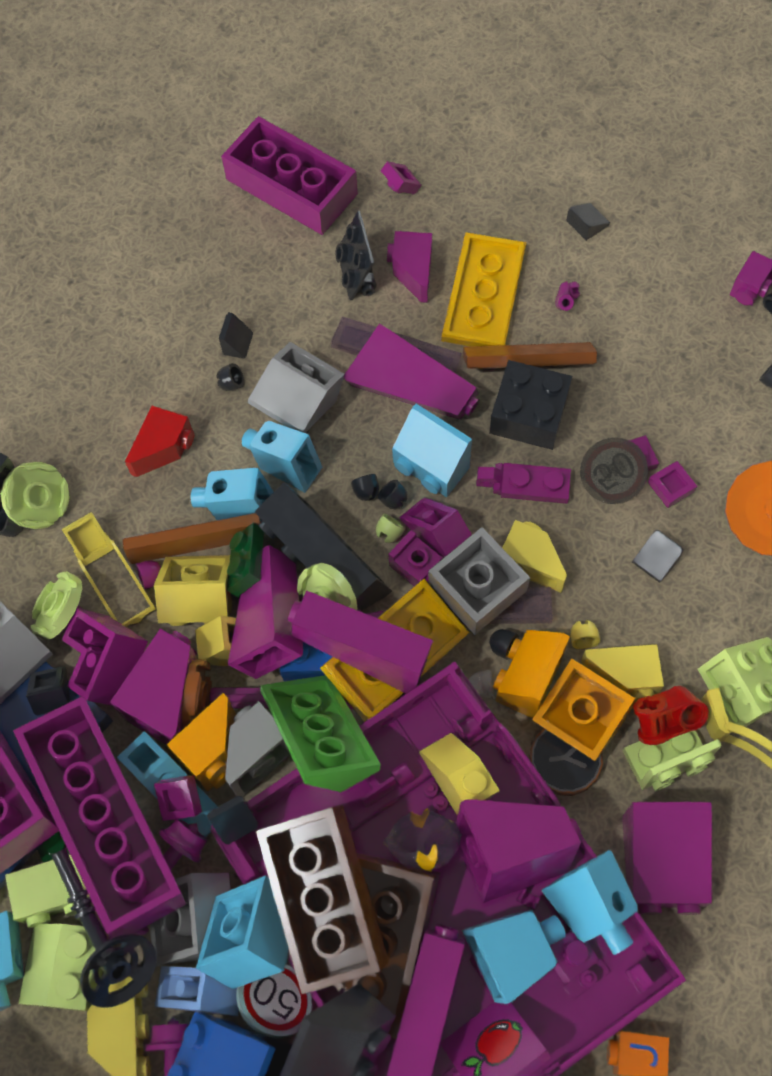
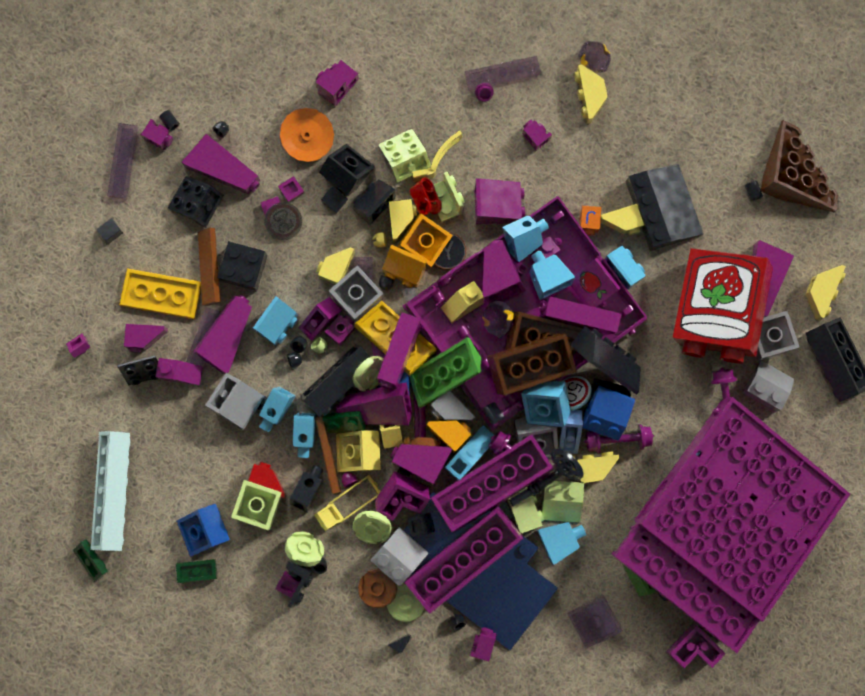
camera: 100 degrees left, 15 degrees up
(28, 341) = (196, 571): none -> dark green plate
(55, 207) = (94, 566): none -> dark green plate
(91, 351) = (203, 529): none -> blue slope
(113, 420) = (256, 505): none -> yellowish green slope
(134, 499) = (304, 496): none -> black torso
(167, 220) = (110, 491): none -> light aqua brick
(178, 798) = (480, 445): magenta plate -> none
(230, 377) = (222, 443): black hinge -> none
(235, 337) = (194, 442): black slope -> none
(290, 175) = (77, 415): magenta brick -> none
(350, 307) = (179, 371): none -> magenta slope
(526, 482) = (289, 269): magenta hinge -> none
(566, 294) = (170, 247): magenta arm -> none
(641, 339) = (196, 200): none -> black bracket
(654, 620) = (374, 201): none -> black slope
(705, 235) = (122, 161): none -> clear purple tile
(712, 367) = (218, 164): none -> magenta slope
(717, 576) = (346, 169): none -> black slope

